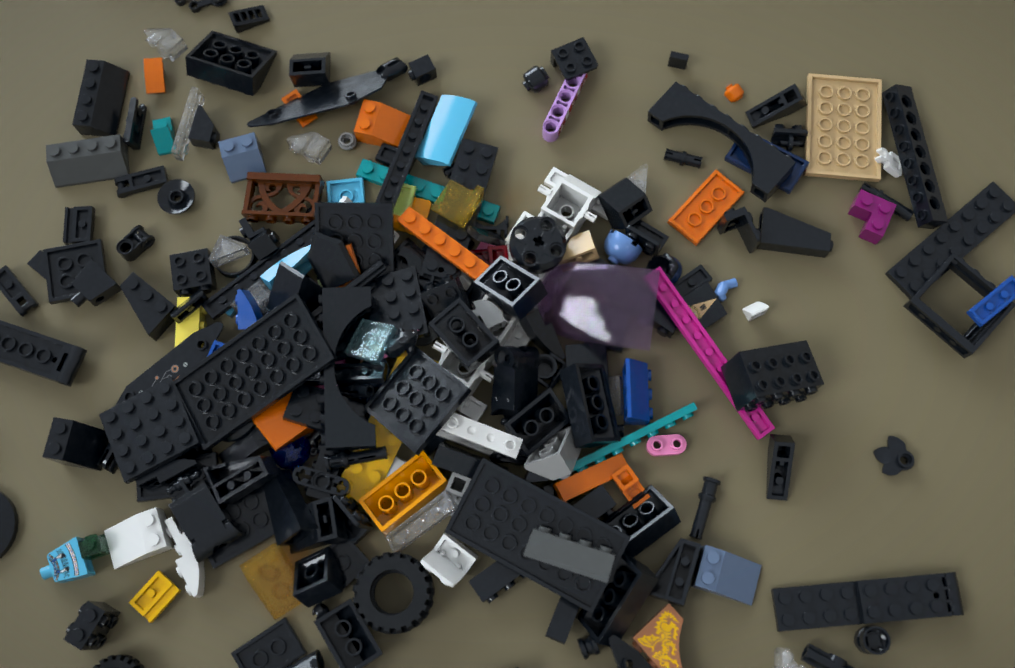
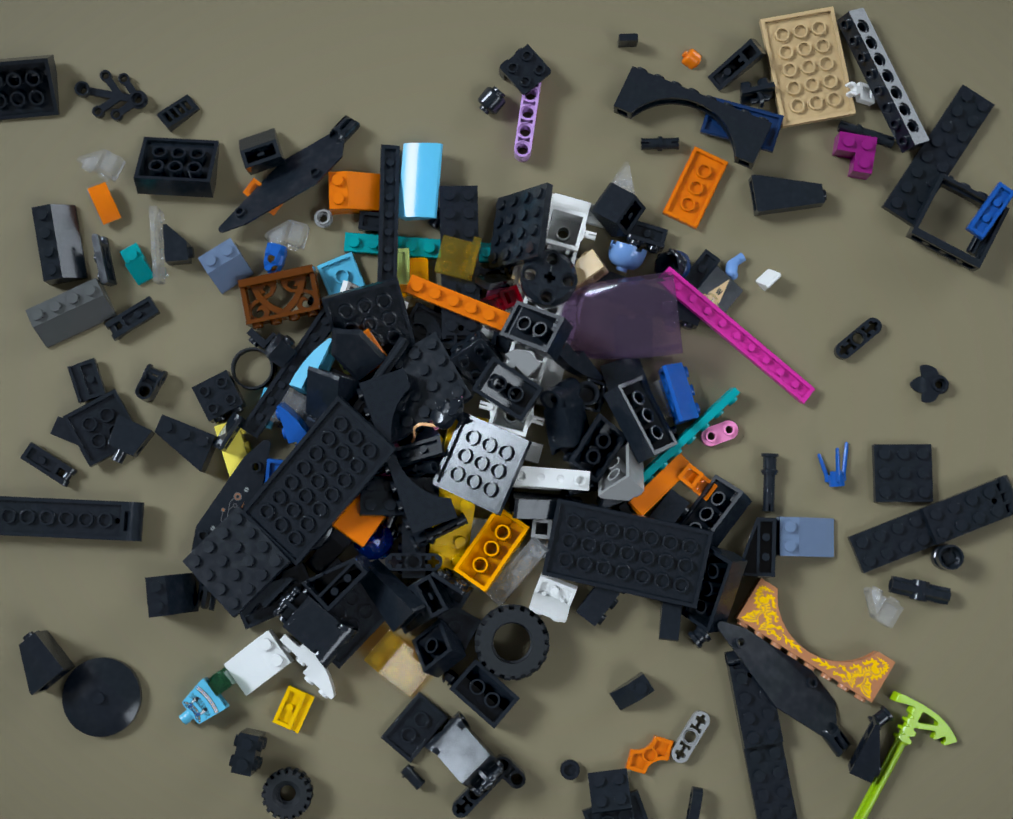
camera: 20 degrees left, 10 degrees up
(171, 191) = (165, 321): black dish -> none
(227, 251) = (246, 366): clear slope -> none
(290, 161) = (274, 257): none -> blue rock
(370, 341) = (420, 420): clear light blue tile -> none
(422, 70) = (374, 122): black brick -> none
(525, 192) = (520, 227): none -> black plate
(570, 554) = (664, 564): dark grey slope -> none
(744, 223) = (738, 199): black bracket -> none
(772, 376) = (801, 343): black brick -> none
(776, 524) = (838, 477): none -> blue plant
(779, 466) = (827, 422): black slope -> none
(845, 391) = (864, 326): none -> black beam
(845, 539) = (902, 473): none -> black plate

